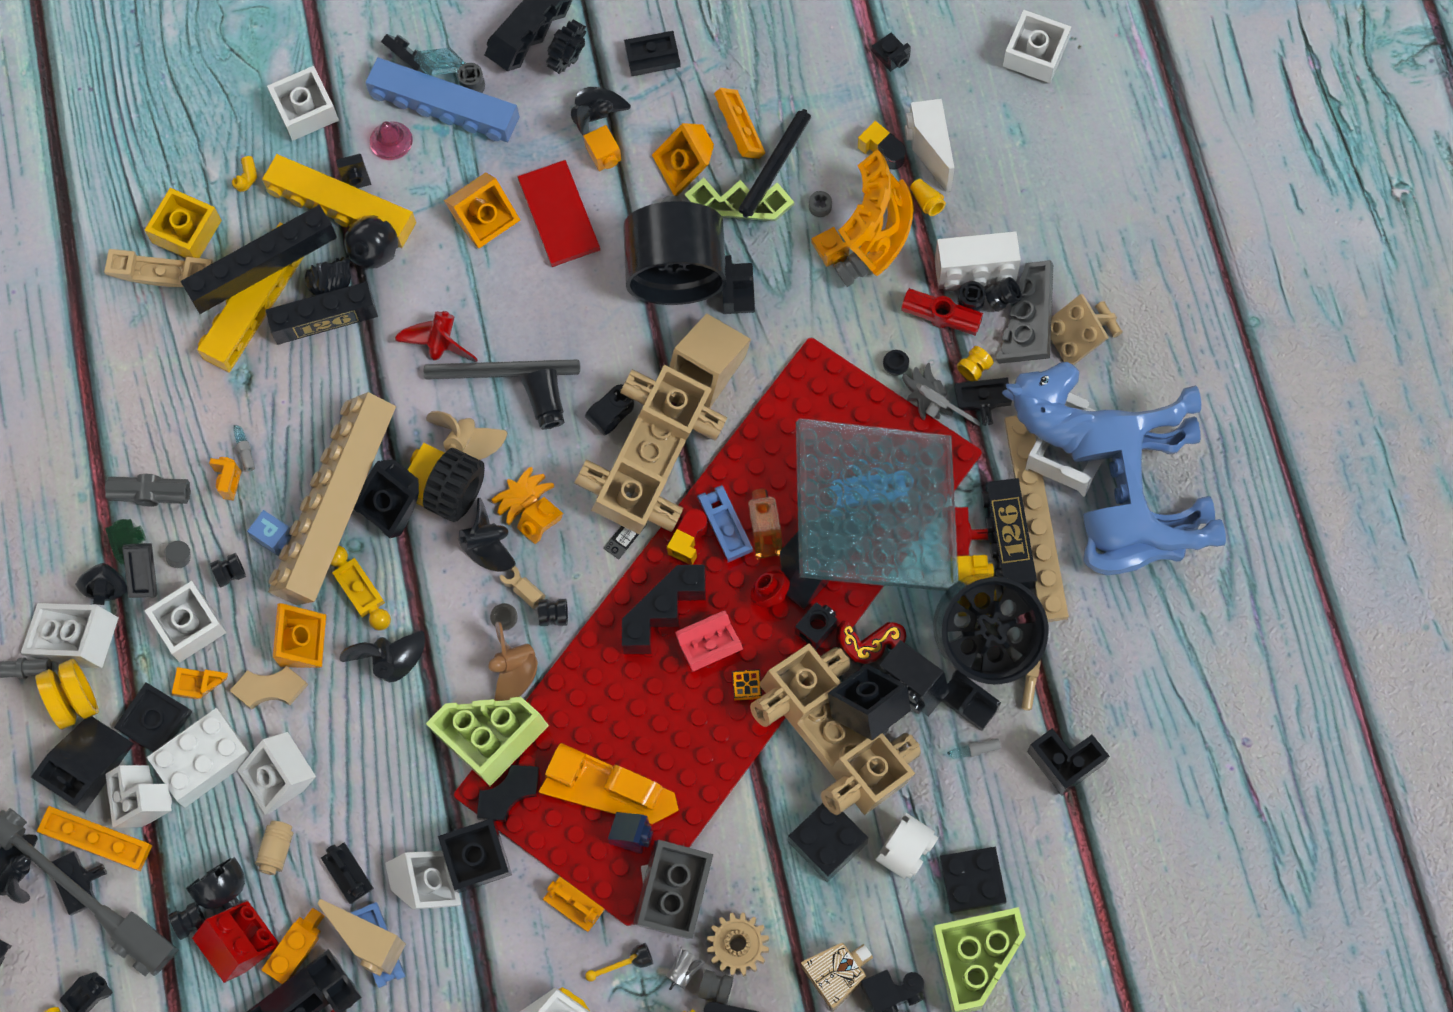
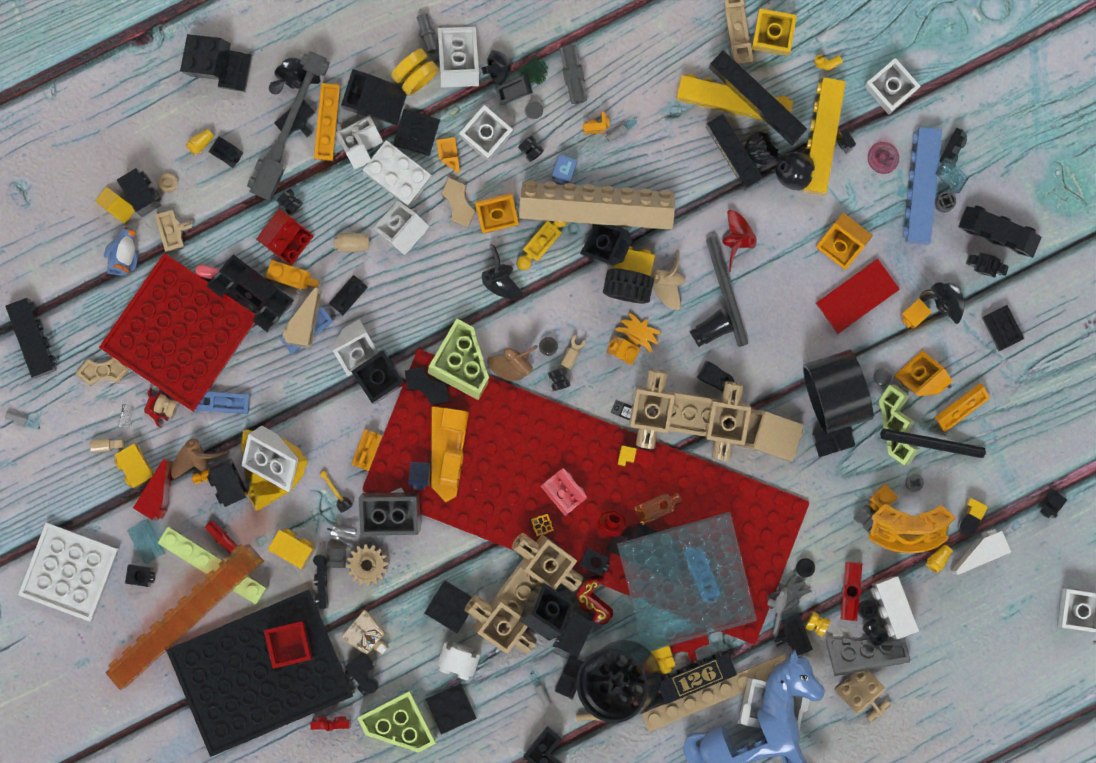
camera: 70 degrees right, 15 degrees up
(219, 886) = (316, 215): black cylinder -> none
(484, 544) = (596, 317): black piece -> none
(661, 606) = (579, 453): black brick -> none
(725, 524) = (651, 480): medium blue plate -> none

